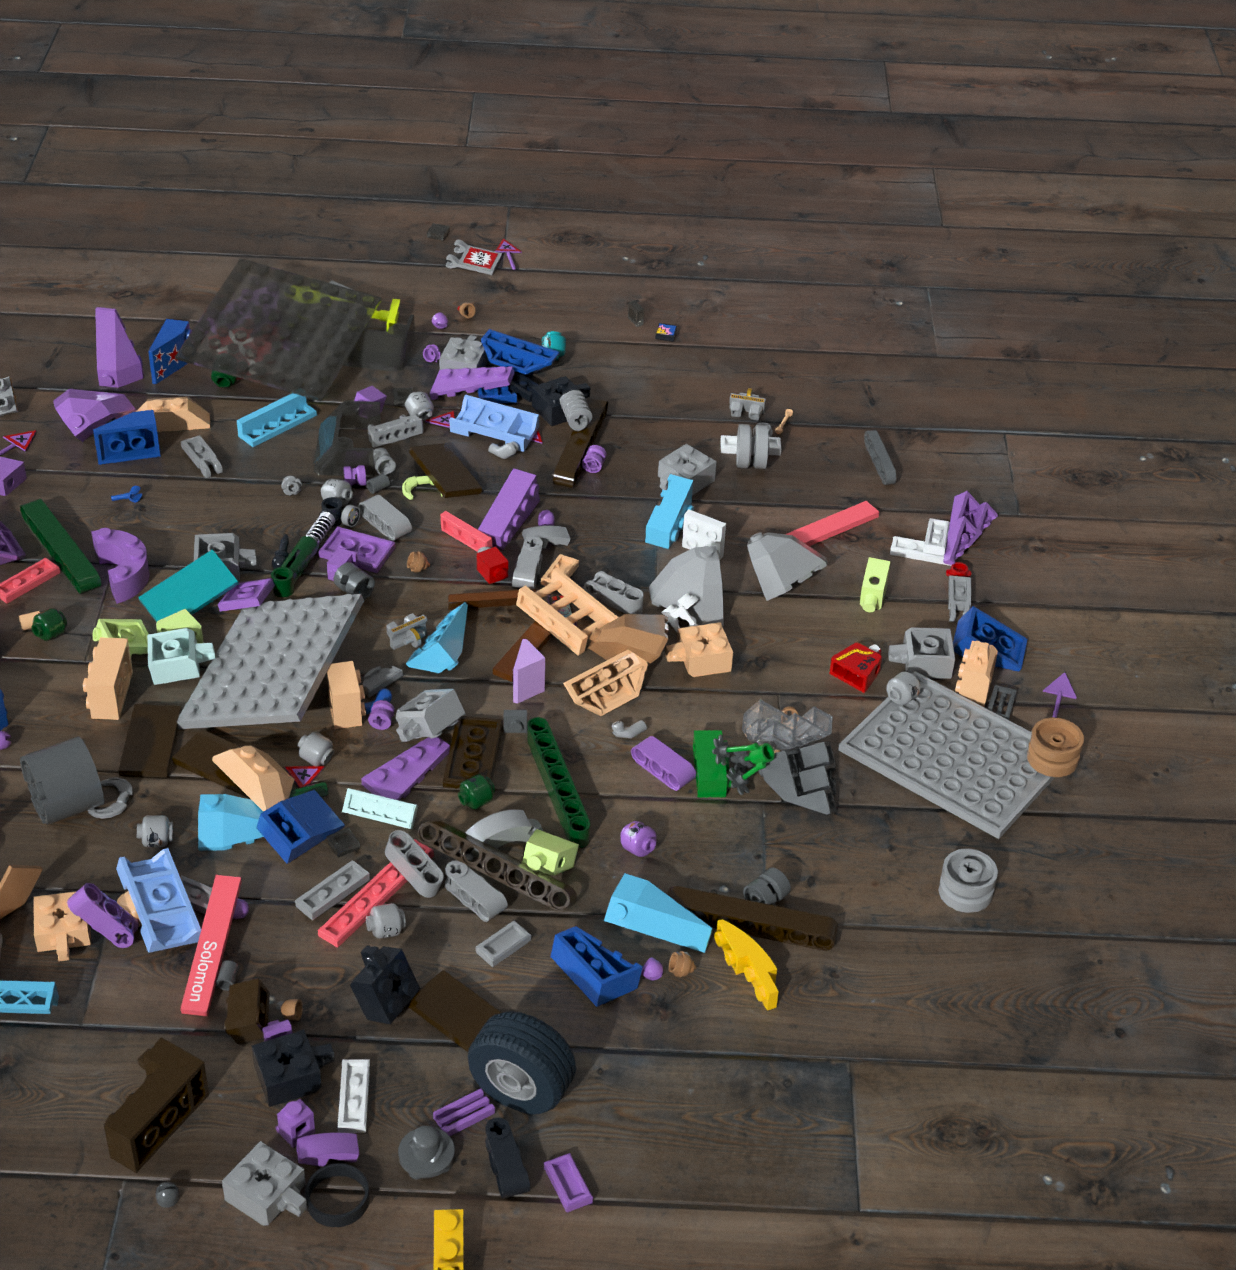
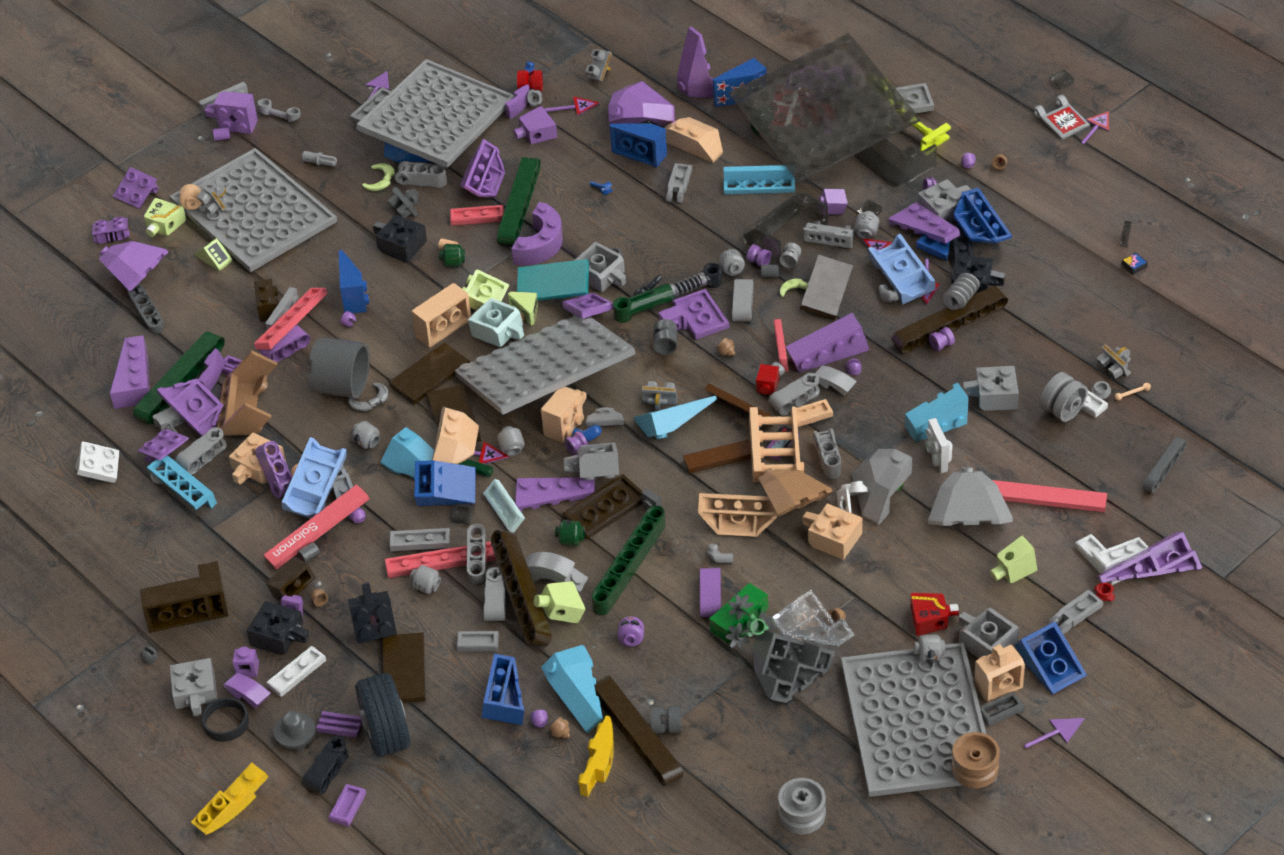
camera: 50 degrees right, 5 degrees up
(291, 480) = (710, 239): light grey plate -> none
(350, 515) = (721, 285): light grey tile -> none
(528, 673) = (690, 471): lavender slope -> none
(555, 341) = (1023, 228): teal head -> none

